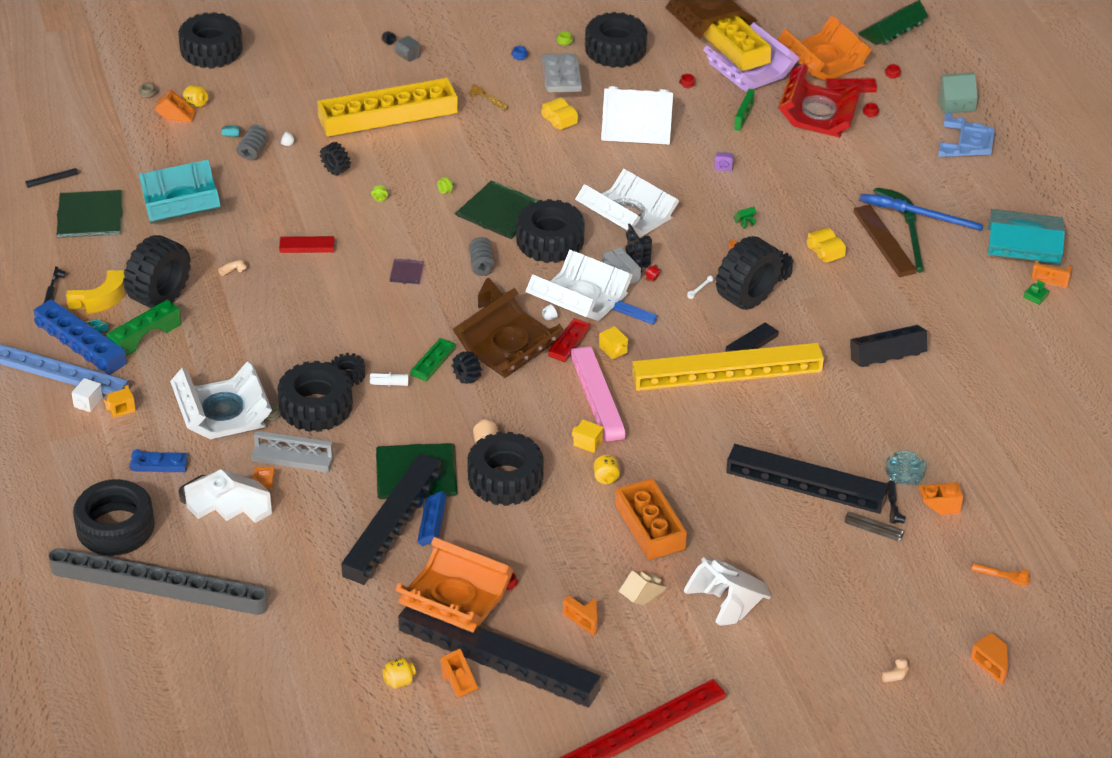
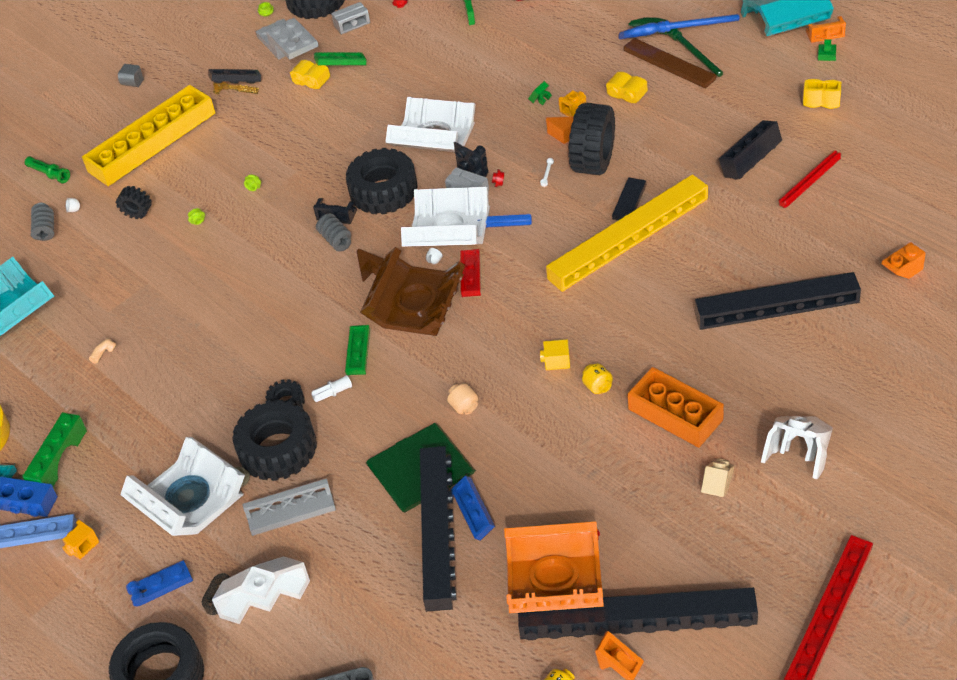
camera: 20 degrees left, 5 degrees up
(87, 395) = (40, 549): white brick -> none
(156, 271) = (36, 389): black tyre -> none
(231, 131) = (12, 220): teal tile -> none
(264, 476) = (278, 547): orange plate -> none
(289, 103) = (52, 171): none -> green pin
(306, 244) = (159, 295): red tile -> none
(388, 37) = (105, 73): black hinge -> none
(406, 271) = (272, 278): clear purple piece -> none
(466, 367) = (399, 342): black gear -> none
(493, 86) = (234, 75): none -> black plate
(495, 208) = (315, 179): clear green piece -> none
(498, 243) = (344, 214): none -> black hinge
(505, 486) = (509, 444): black tyre -> none
(519, 52) = (234, 37): blue plate -> none
(582, 615) = (689, 534): orange slope -> none
(586, 107) = (340, 58): none -> green tile
(598, 393) = (534, 310): bright pink beam -> none
(613, 342) = (514, 257): yellow brick -> none
(631, 77) = (350, 18): none -> light grey brick
(637, 116) = (383, 46): white bracket -> none
(723, 161) = (483, 55): medium lavender bracket -> none
(770, 235) = (570, 102): none -> light orange brick
(874, 526) = (866, 316): dark brown axle -> none
(895, 516) = (873, 295): black piece -> none
(912, 475) = (846, 259): clear light blue plate -> none
(924, 394) = (809, 179): none -> red axle
(994, 326) = (822, 93): none -> yellow brick

